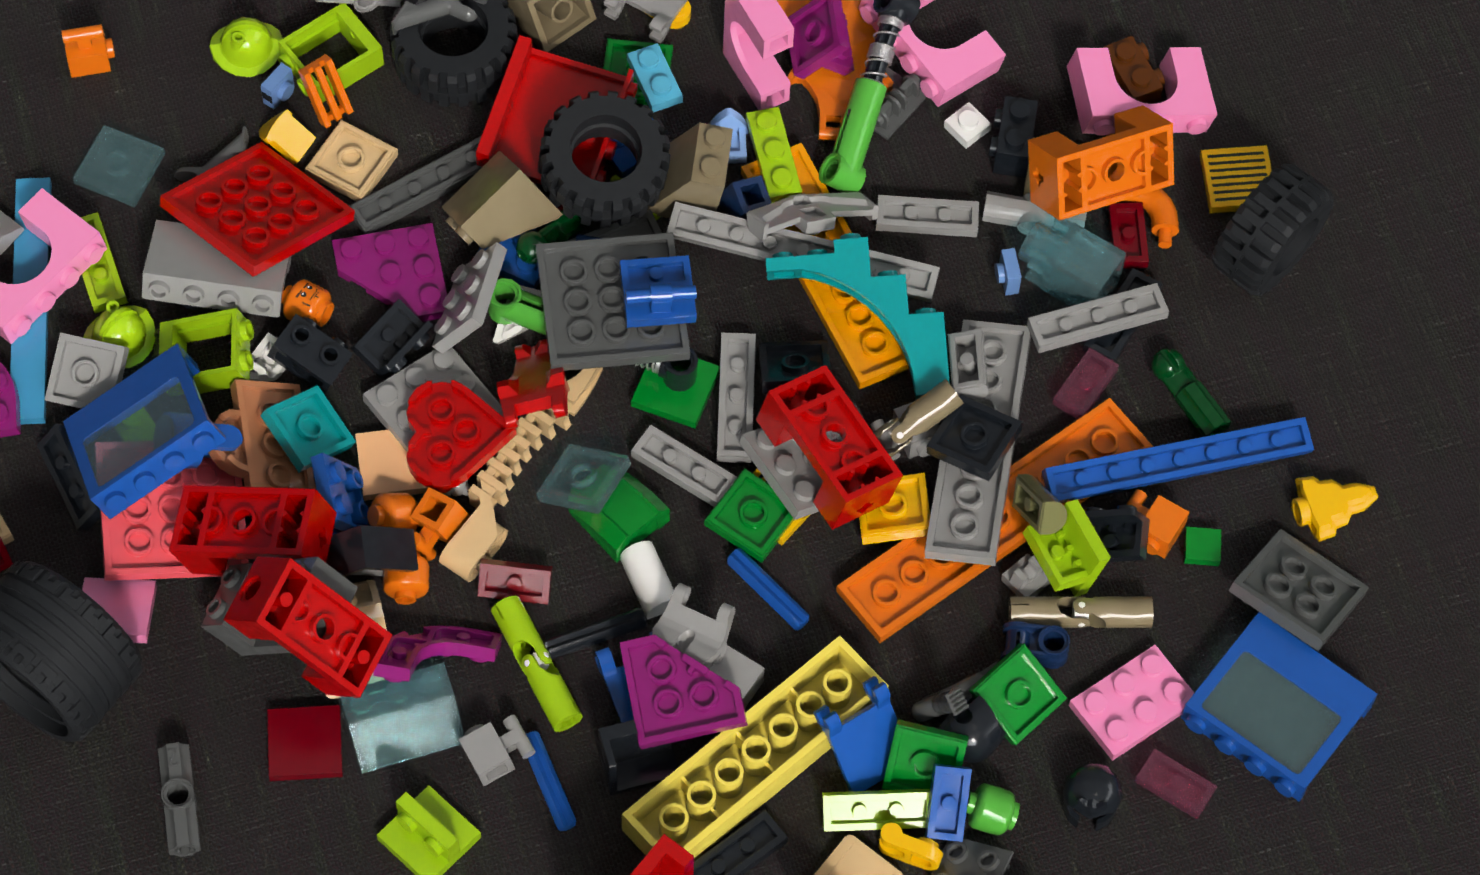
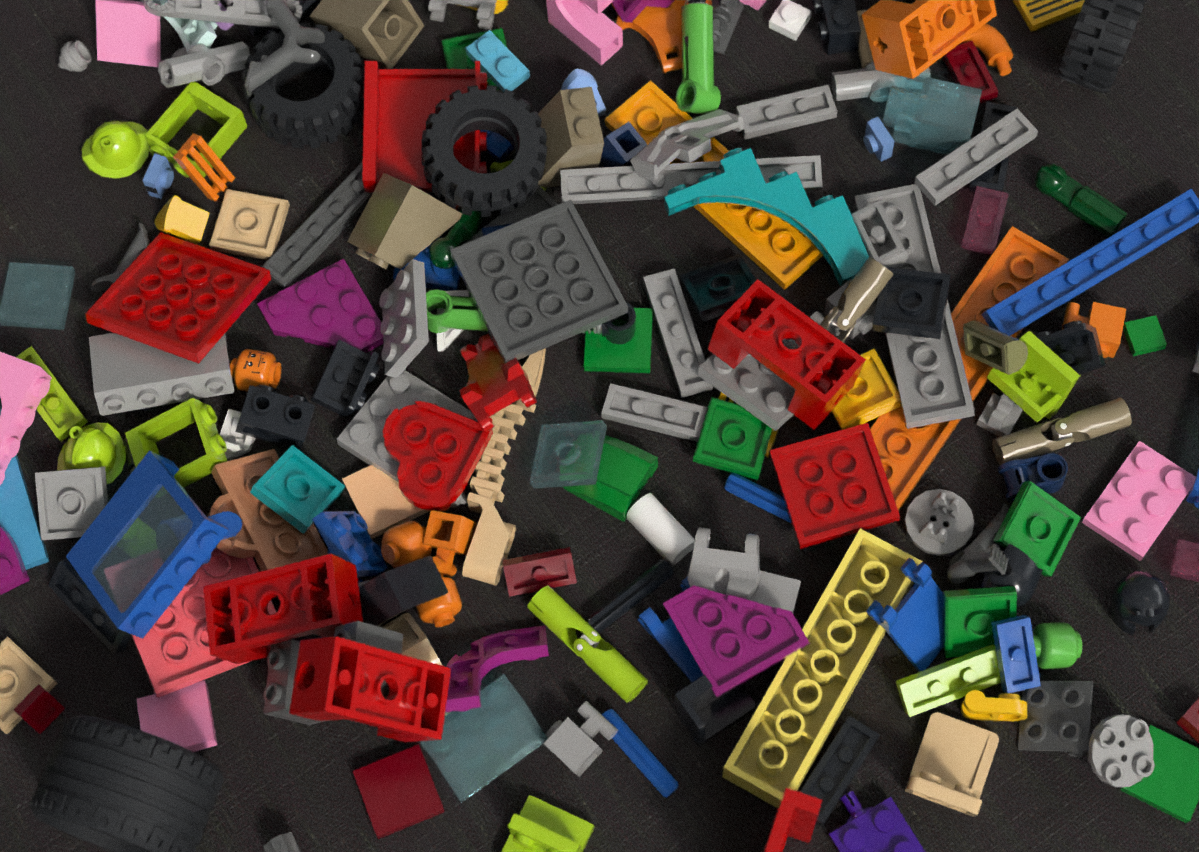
camera: 10 degrees left, 5 degrees up
(658, 291) = (579, 259): blue plate -> none
(773, 153) = (630, 98): lime plate -> none
(831, 589) = (834, 485): none -> red plate
(914, 670) = (933, 536): none -> light grey plate

